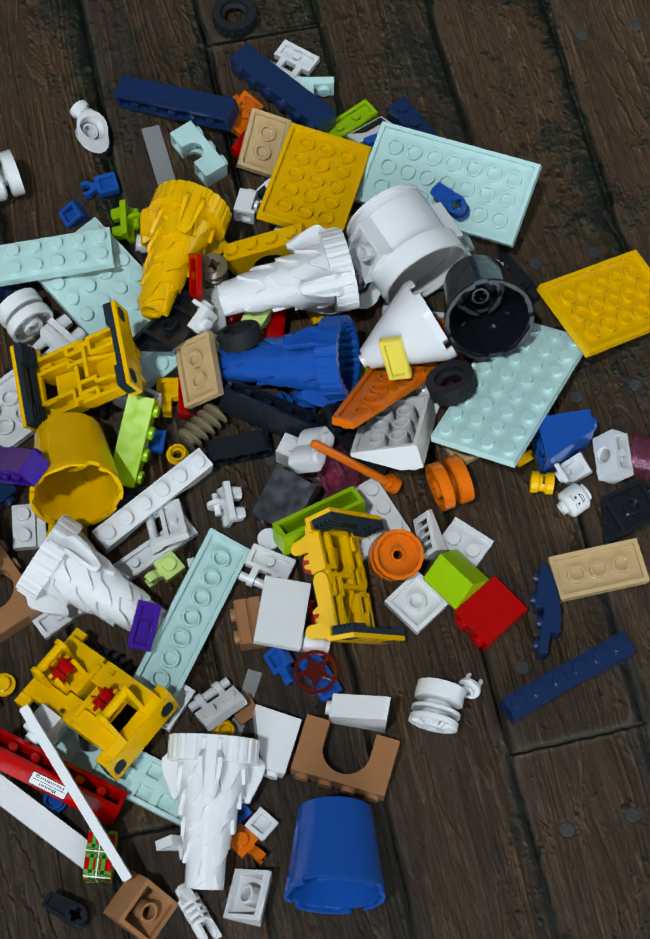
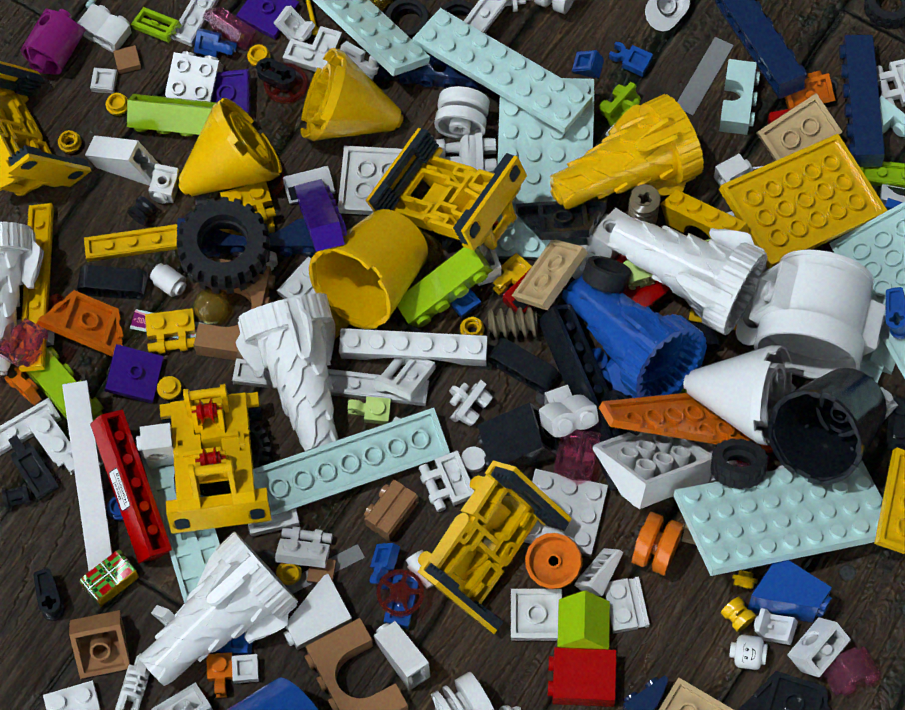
camera: 50 degrees right, 0 degrees up
(75, 793) = (128, 511): white tile -> none
(144, 625) = (302, 434): dark purple plate -> none
(197, 275) = (621, 195): red slope -> none
(203, 317) = (591, 234): white bracket -> none
(282, 613) = (417, 523): white tile -> none
(292, 527) = (550, 480): lime brick -> none
(389, 482) = (613, 501): orange piece -> none
(395, 357) = (708, 400): light yellow tile -> none

